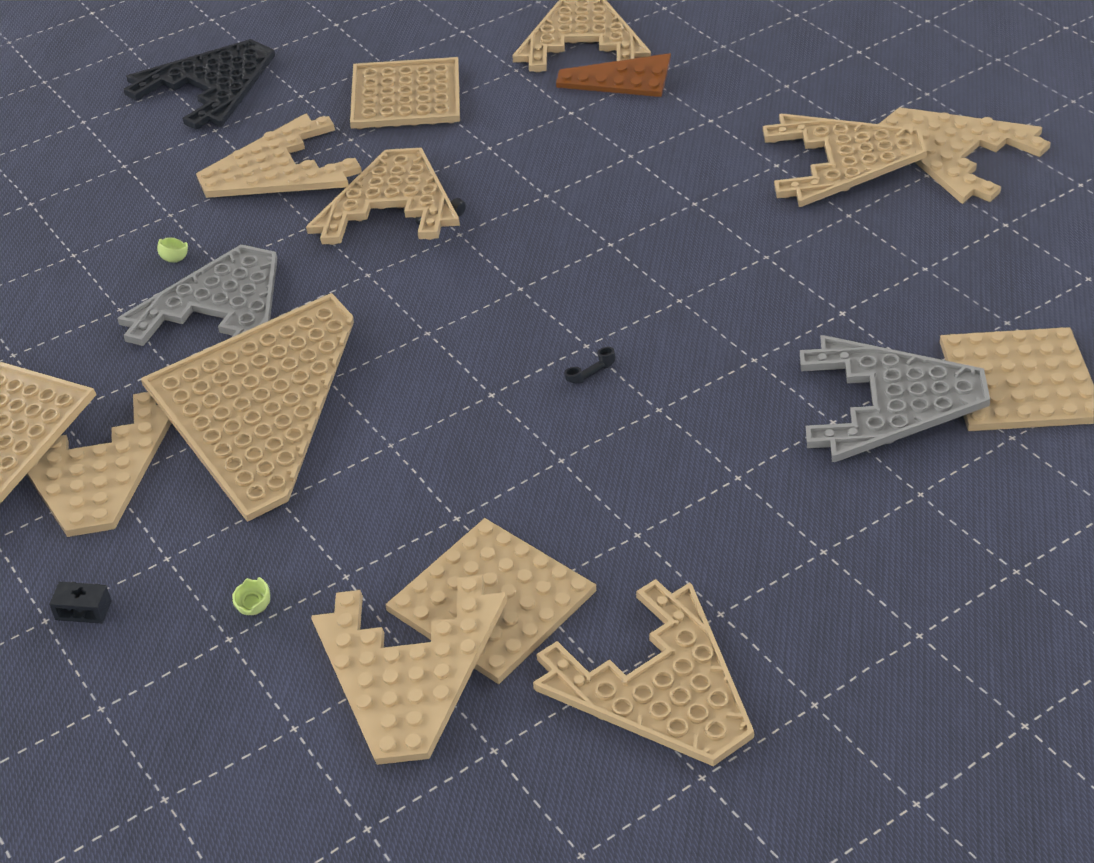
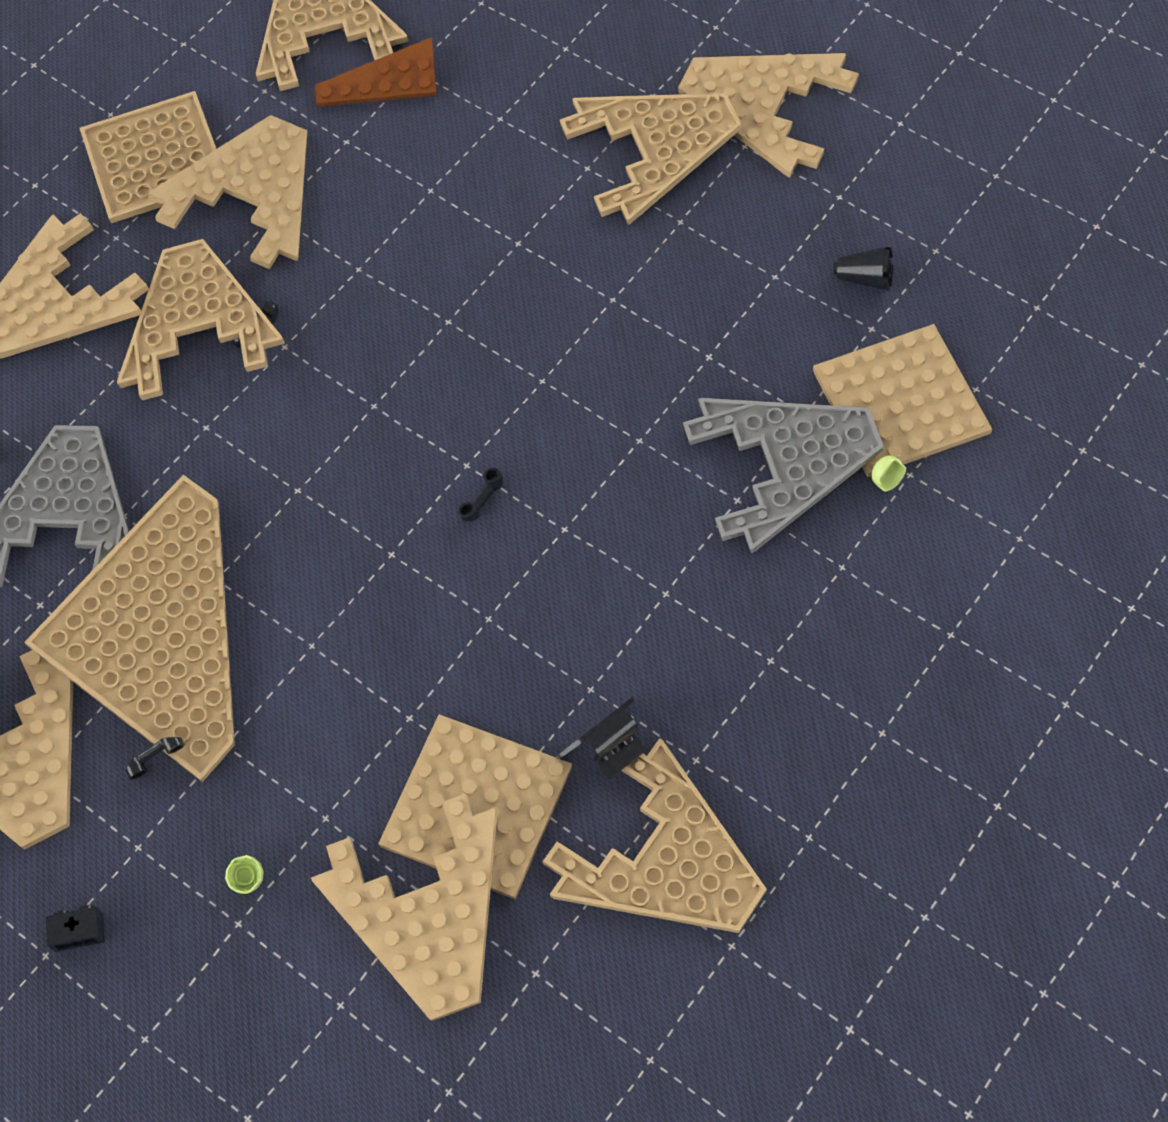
camera: 15 degrees left, 20 degrees up
(193, 494) = (137, 768): none -> black bar
(490, 113) = (257, 167): none -> tan wing
(640, 565) = (612, 741): none -> black piece
(989, 433) = (888, 472): none -> yellowish green hair
(1016, 273) = (867, 268): none -> black cone

